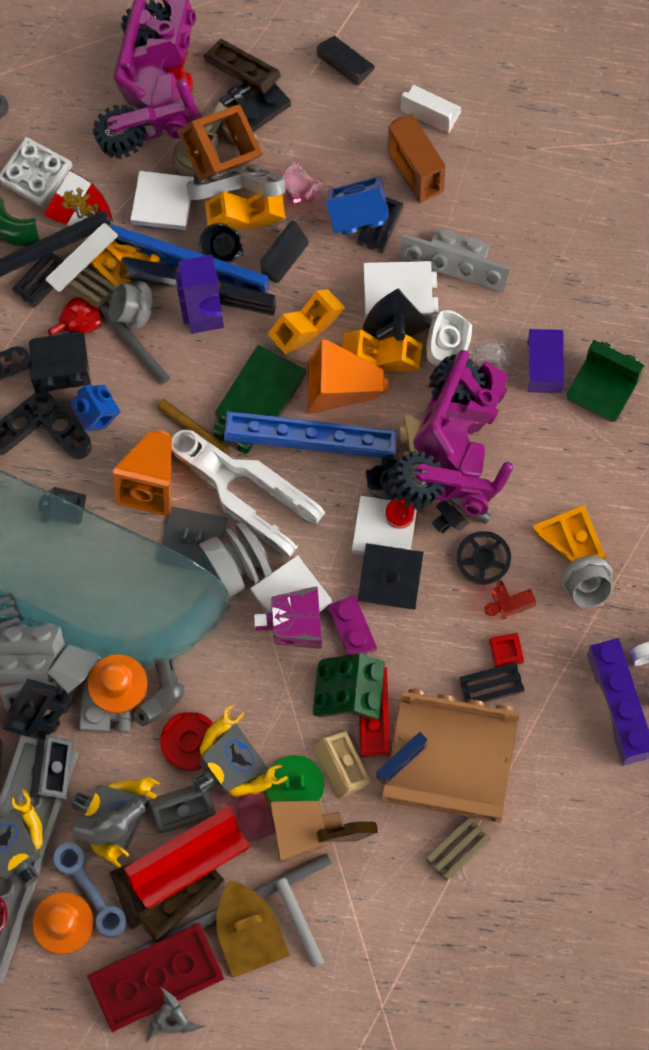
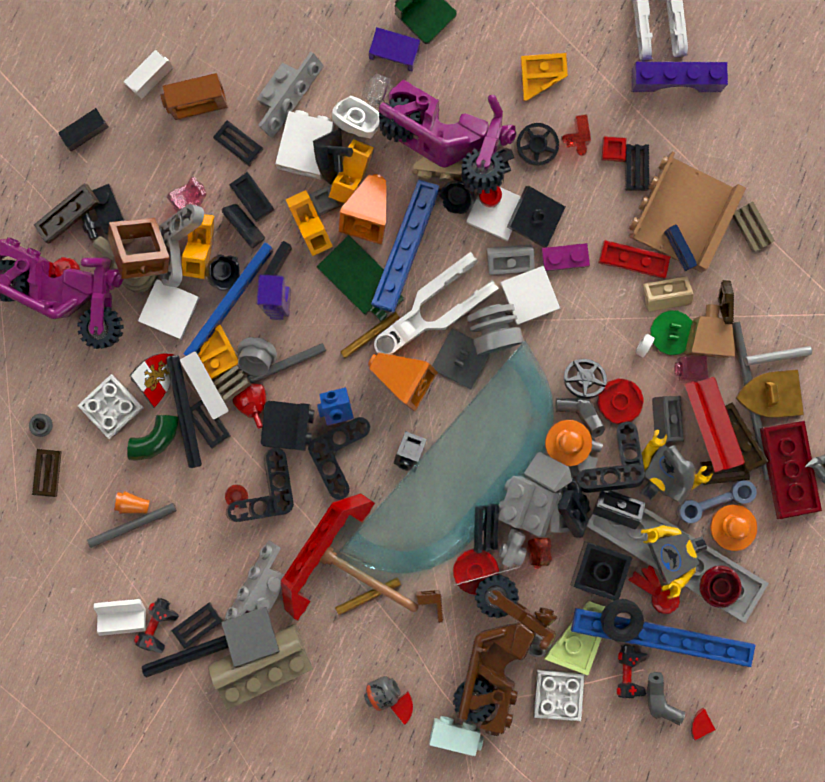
camera: 85 degrees left, 15 degrees up
(105, 761) = (627, 465): none -> black beam
(147, 271) = (232, 334): black slope -> none
(205, 687) = (585, 378): none -> wheel
(232, 761) = (651, 372): torso -> none
(267, 749) = (644, 345): none -> white tile
(293, 619) = (555, 297): magenta torso -> none
(320, 255) = (251, 197): none -> black tile
(331, 563) = (510, 259): none -> light grey slope
(335, 330) = (322, 201): none -> dark grey tile
(349, 686) = (615, 272): dark green bracket -> none
(357, 205) = (220, 154): blue slope -> none
(588, 581) = (582, 71): light grey piece -> none

